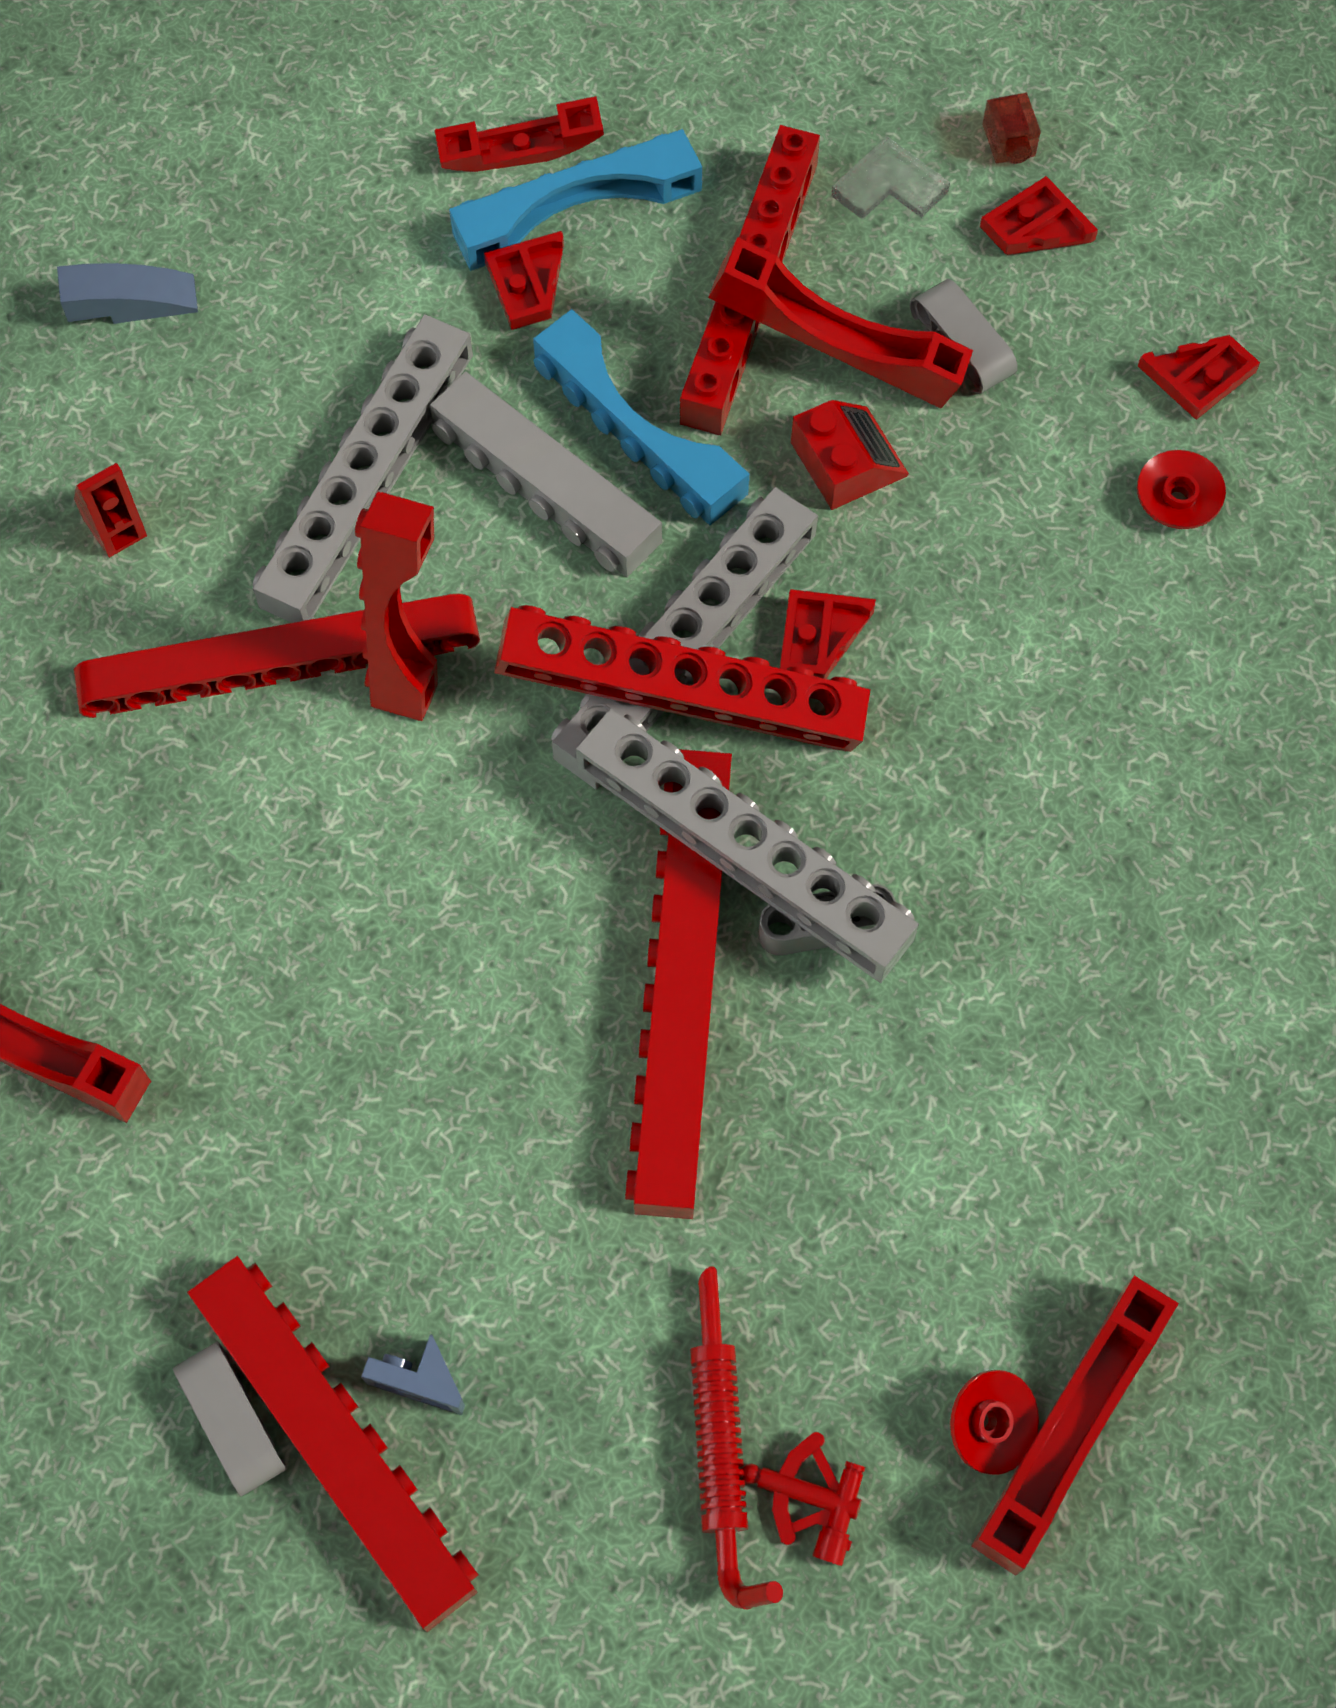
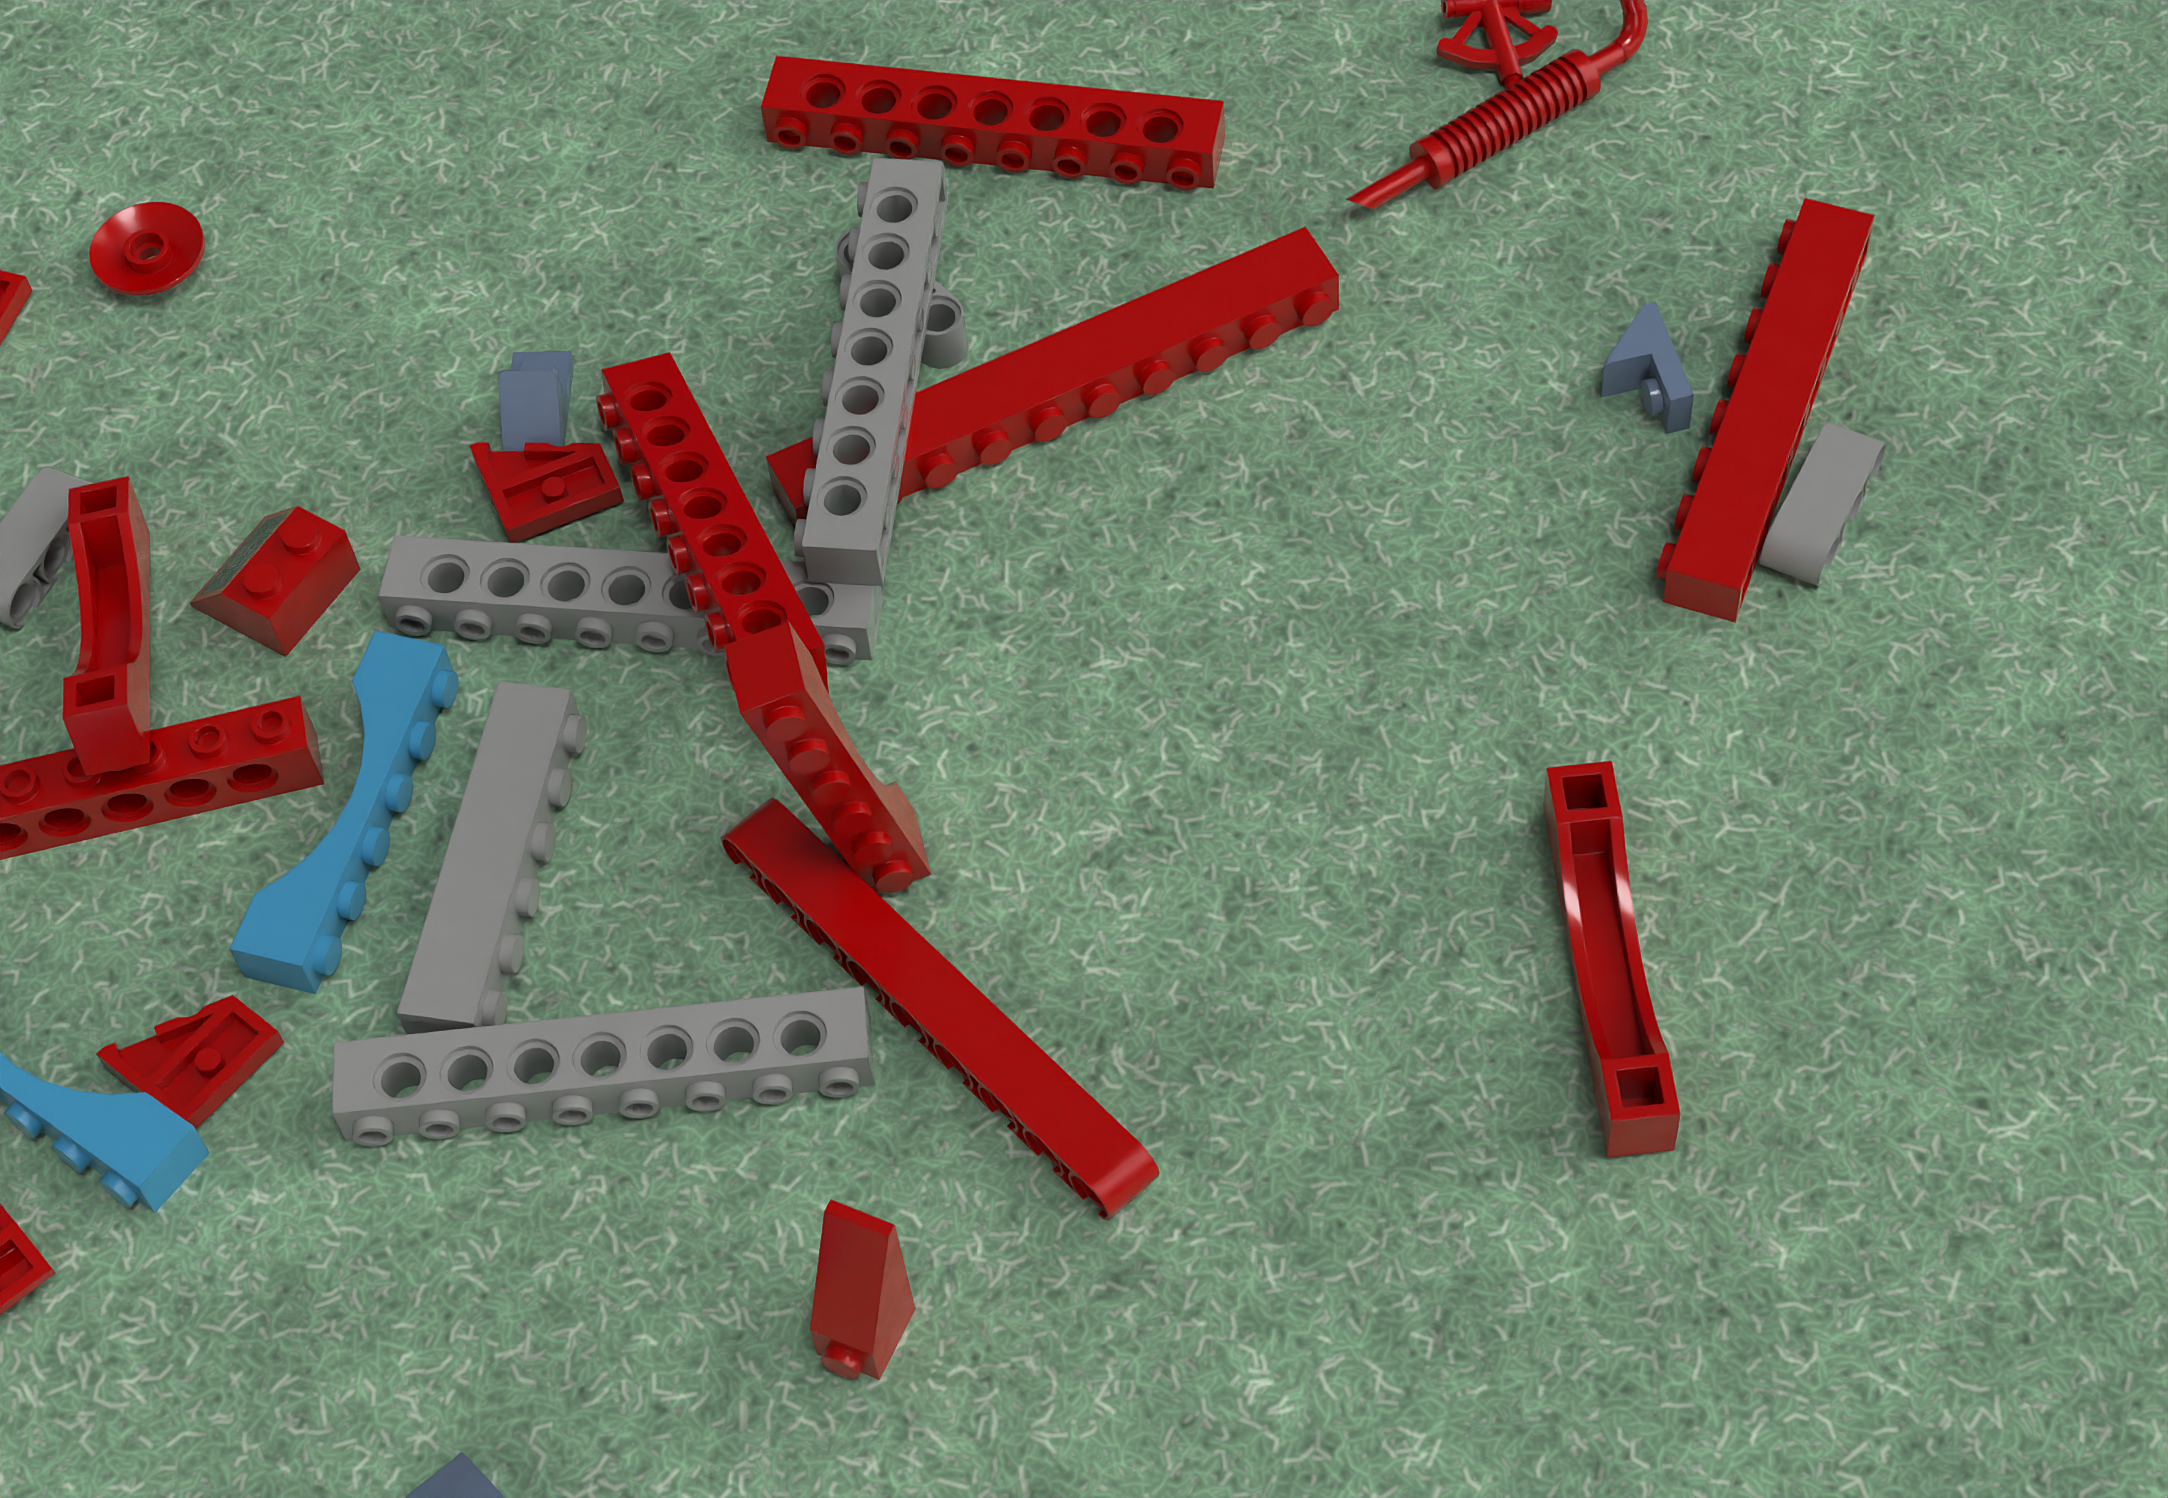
camera: 115 degrees left, 10 degrees down
(848, 1202) = (994, 122): none -> red brick
(888, 659) = (535, 398): none -> sand blue slope

